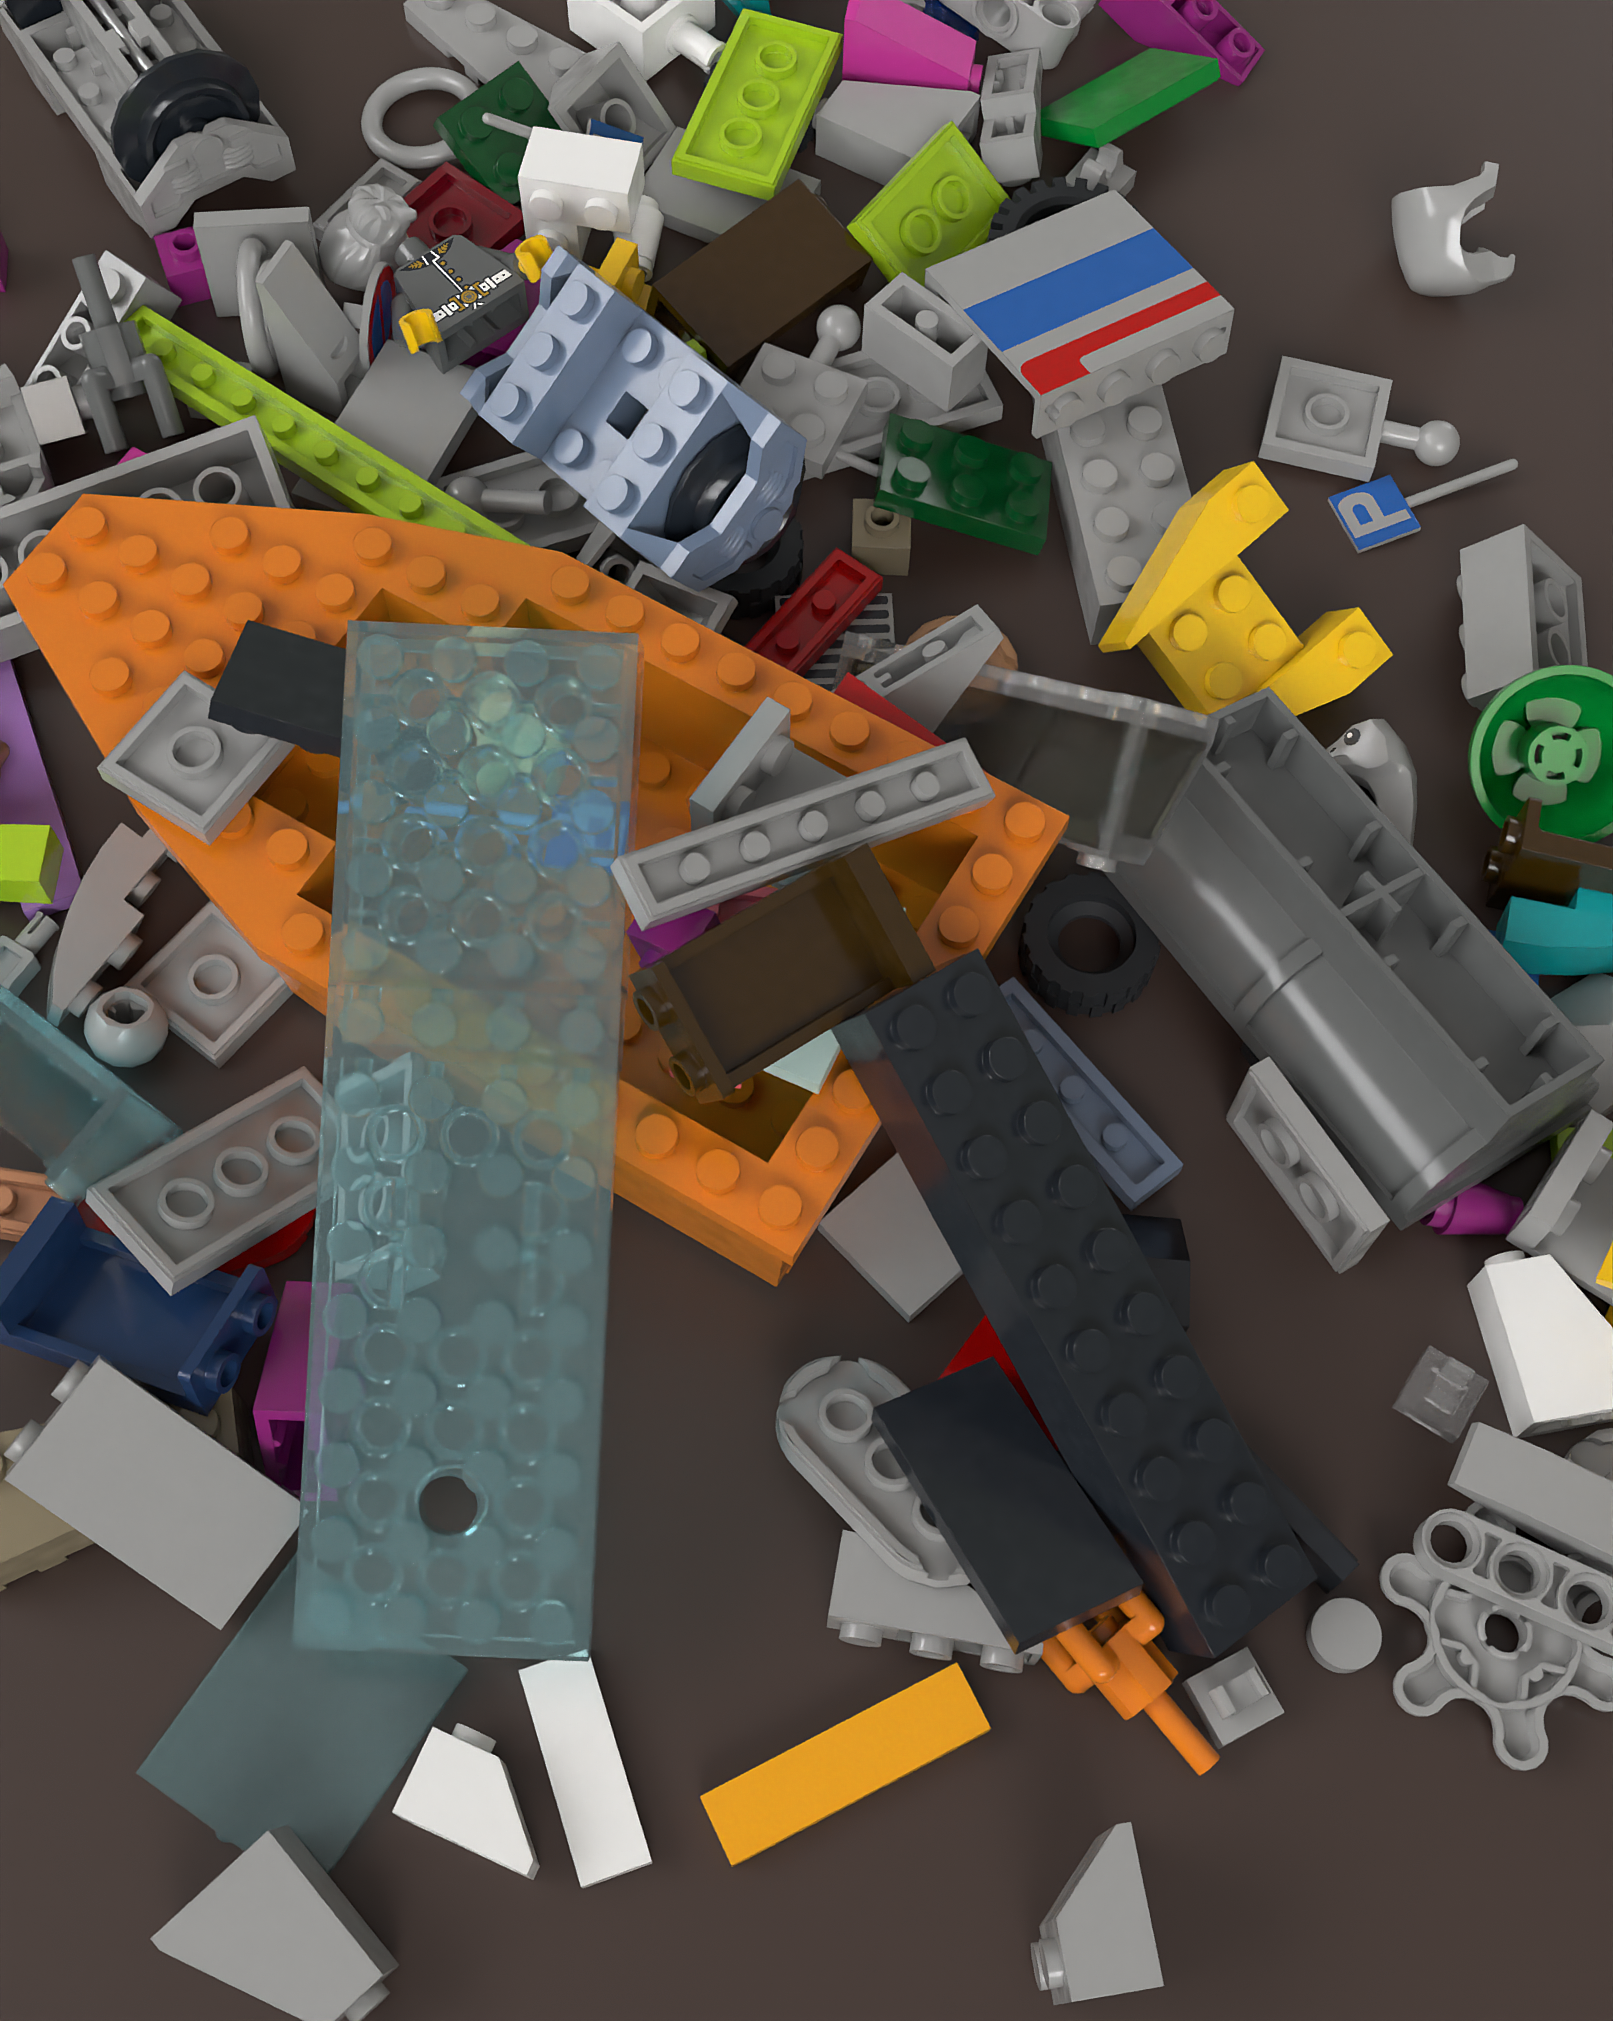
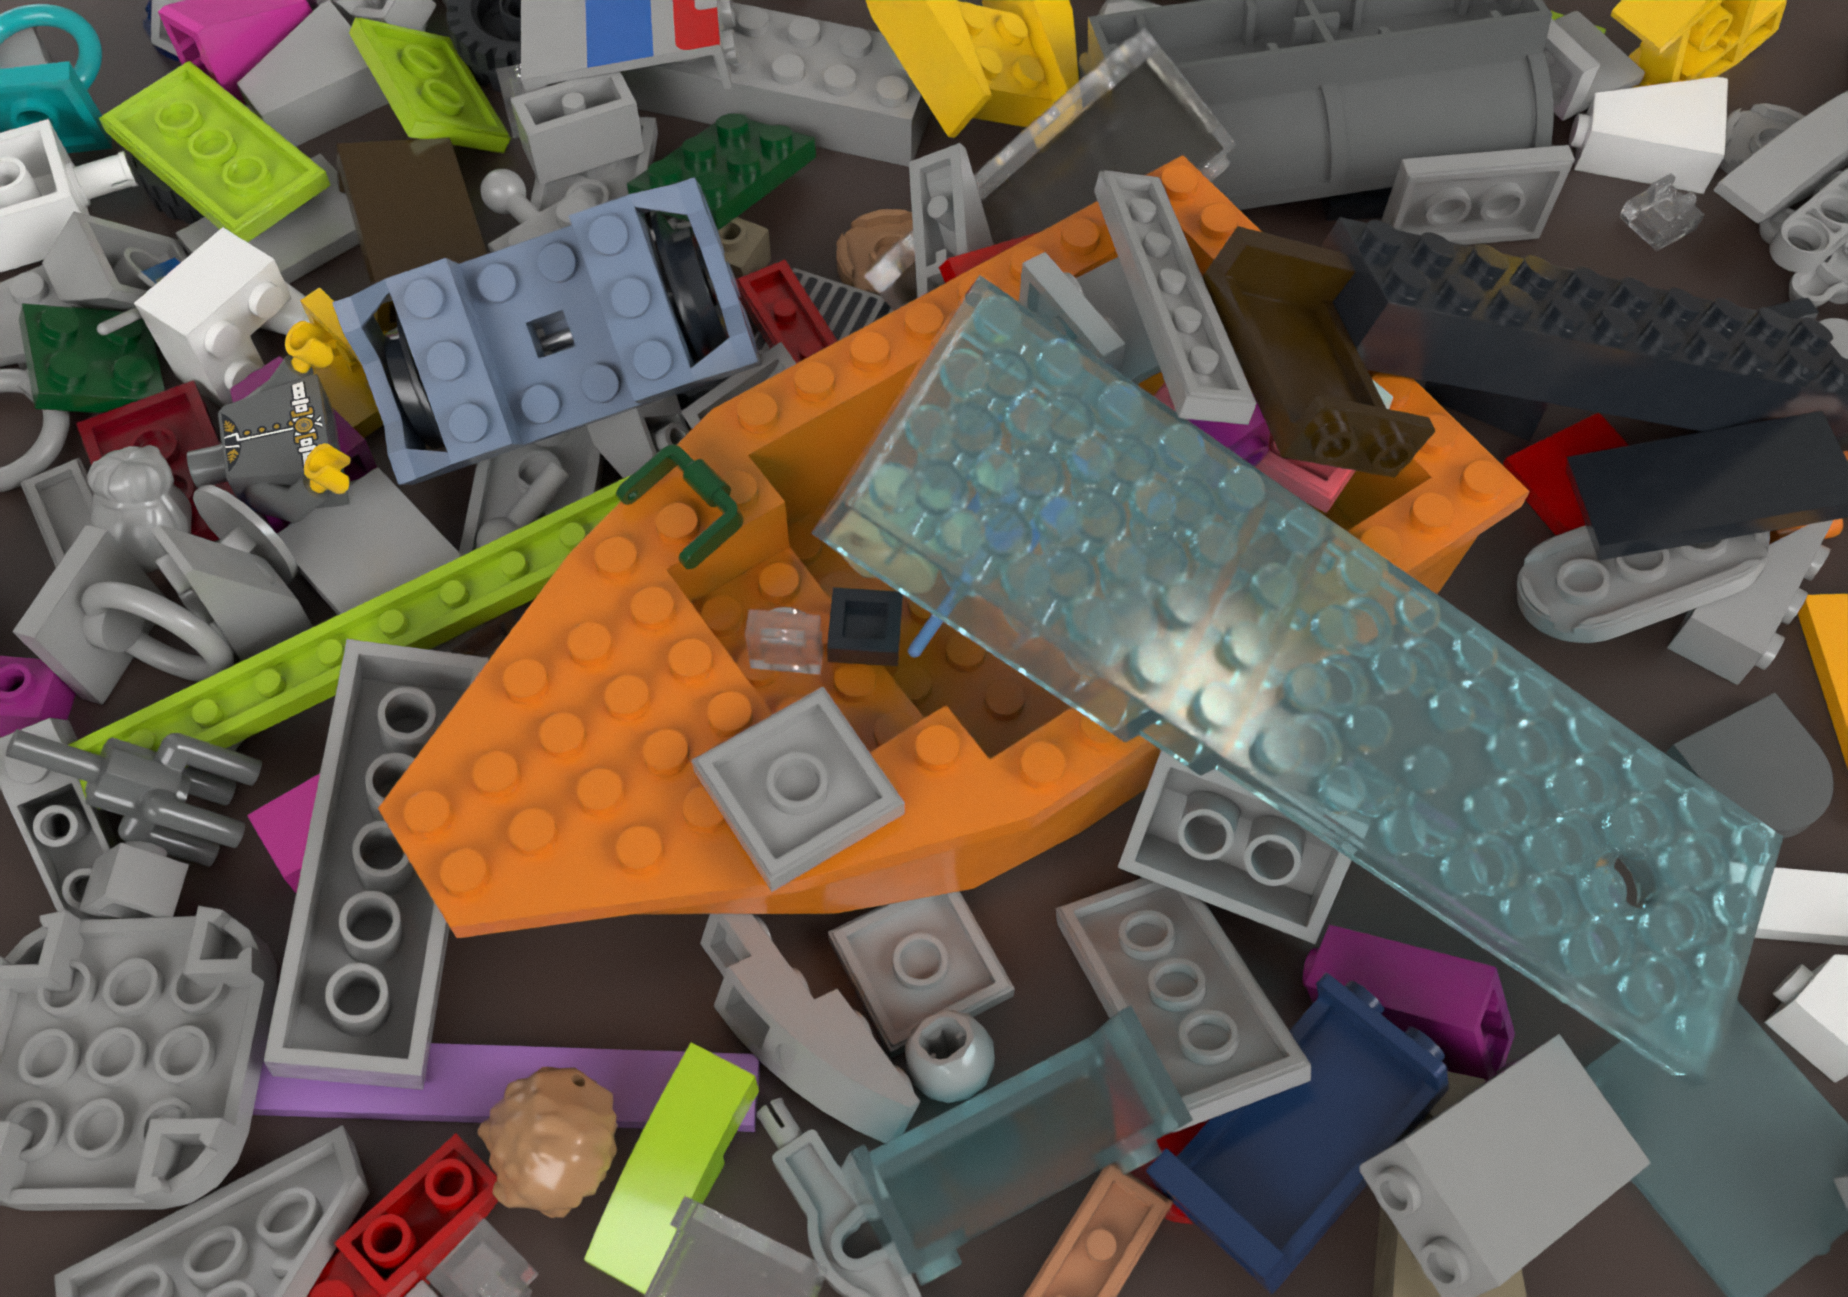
camera: 65 degrees left, 5 degrees down
(283, 689) = (781, 658): black tile -> none
(457, 578) = (704, 483): none -> dark green piece
(719, 1663) = (1763, 765): none -> dark grey tile

